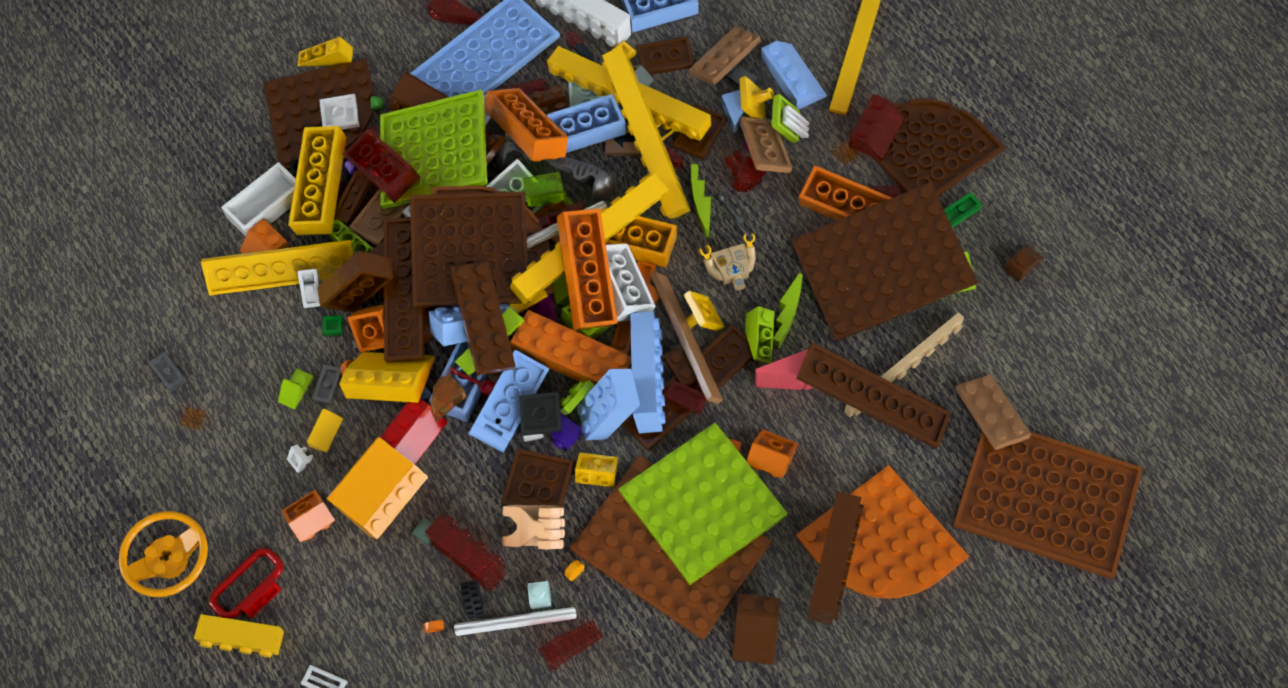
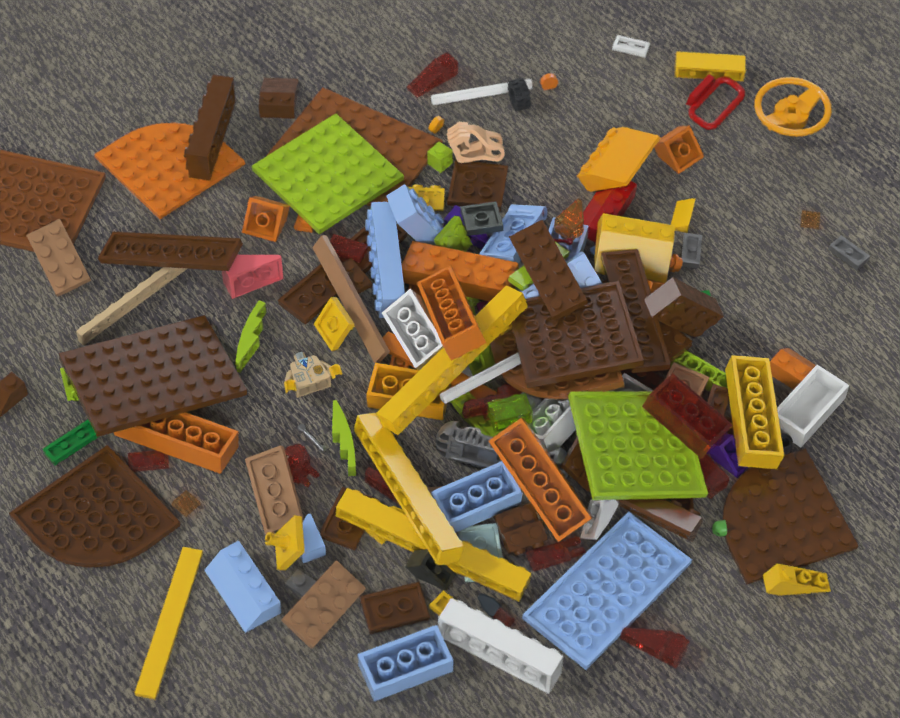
camera: 170 degrees right, 10 degrees down
(272, 267) = (775, 341): yellow plate -> none
(295, 388) = (721, 249): lime slope -> none
(298, 458) = (700, 190): white tile -> none
(309, 281) = (734, 329): white slope -> none
(340, 111) = (757, 506): white tile -> none
(419, 531) = (571, 147): sand green plate -> none
(465, 552) = (531, 122): clear red brick -> none
(539, 595) = (463, 103): light aqua brick -> none
(575, 518) = (440, 157): none -> lime brick
(759, 333) = (278, 307): lime slope -> none
(777, 116) = (252, 523): lime plate -> none
(795, 121) = (240, 521): white tile -> none
(876, 127) = (152, 516): clear red slope -> none

